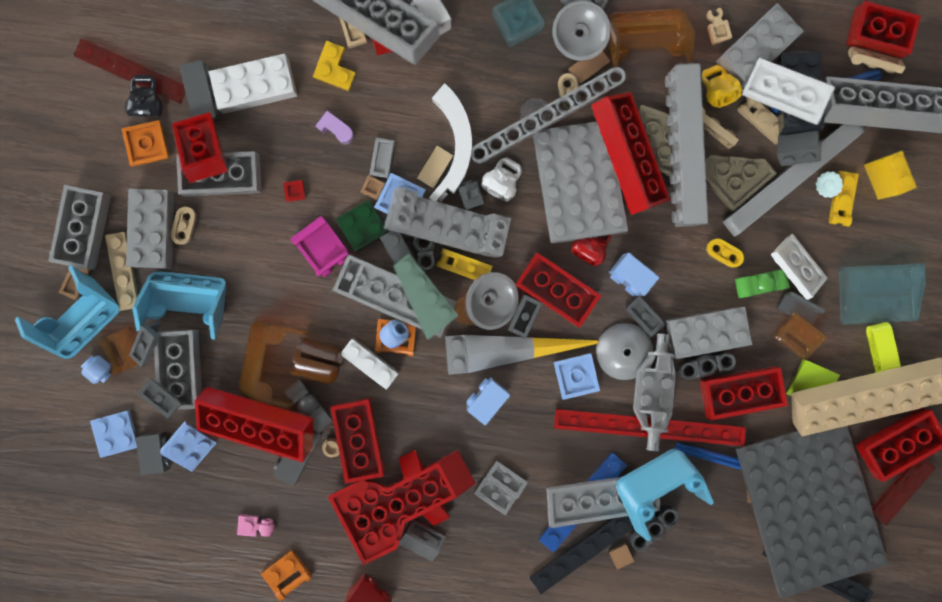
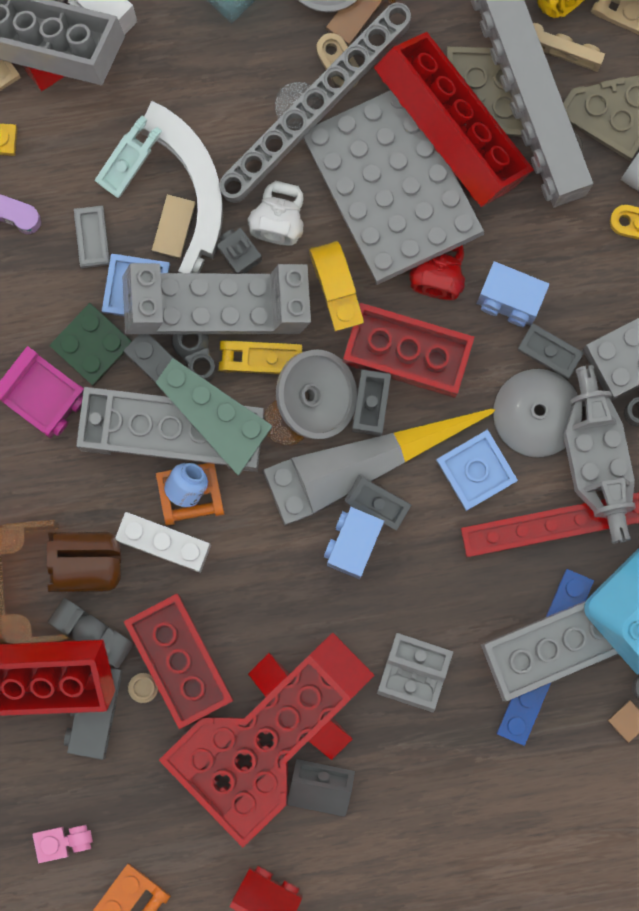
camera: 15 degrees left, 5 degrees down
(373, 187) = (90, 284): medium nougat tile -> none
(418, 116) = (127, 159): none -> light aqua hinge
(509, 378) = (377, 502): none -> dark grey plate
(525, 236) = (337, 285): none -> yellow arch
(580, 553) = (567, 734): black plate -> none

